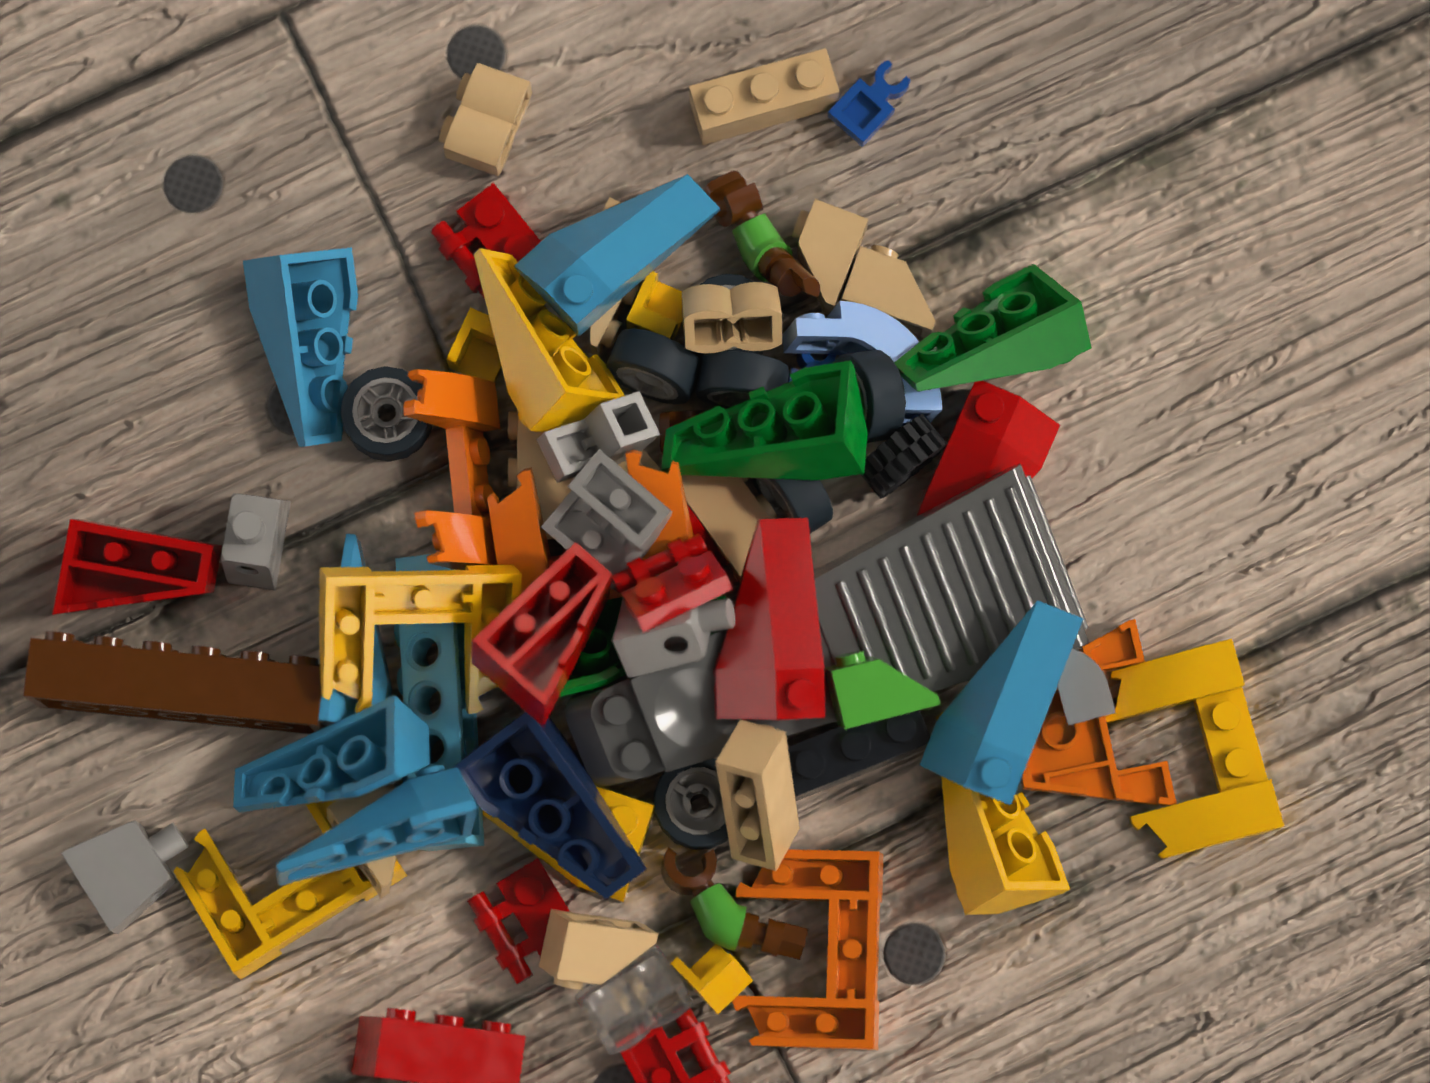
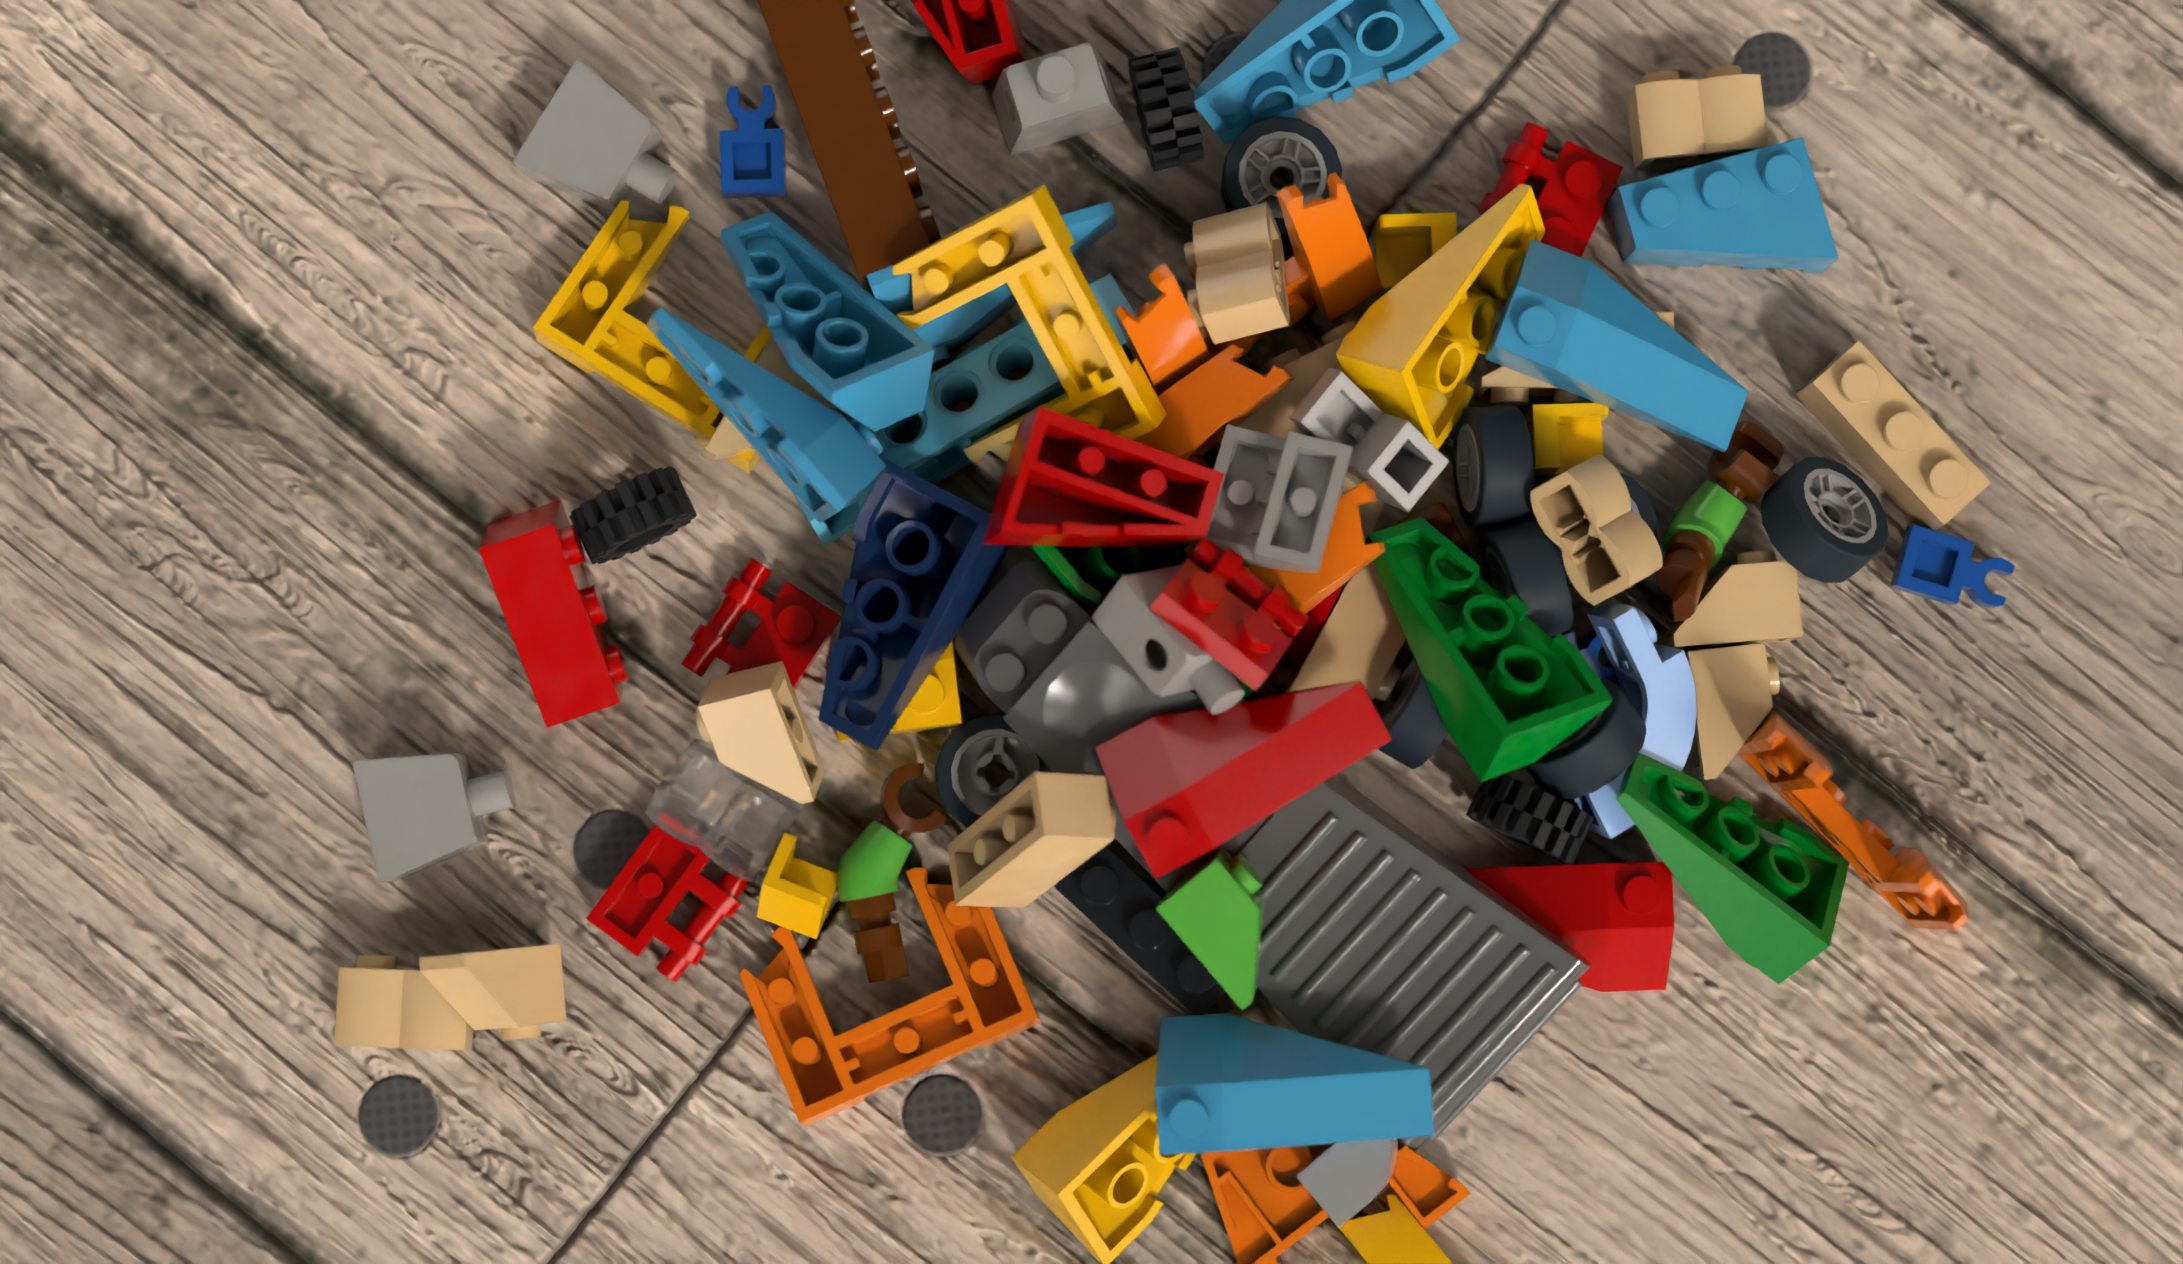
camera: 65 degrees right, 5 degrees up
(187, 765) = (753, 155): none -> blue plate
(301, 466) = (1166, 109): none -> black tyre
(399, 965) = (632, 515): none -> black tyre
(440, 470) = (1237, 274): none -> tan brick
(559, 128) = (1728, 212): none -> dark azure wedge
(797, 167) = (1824, 519): none -> black wheel
(961, 267) = (1802, 779): none -> orange wedge

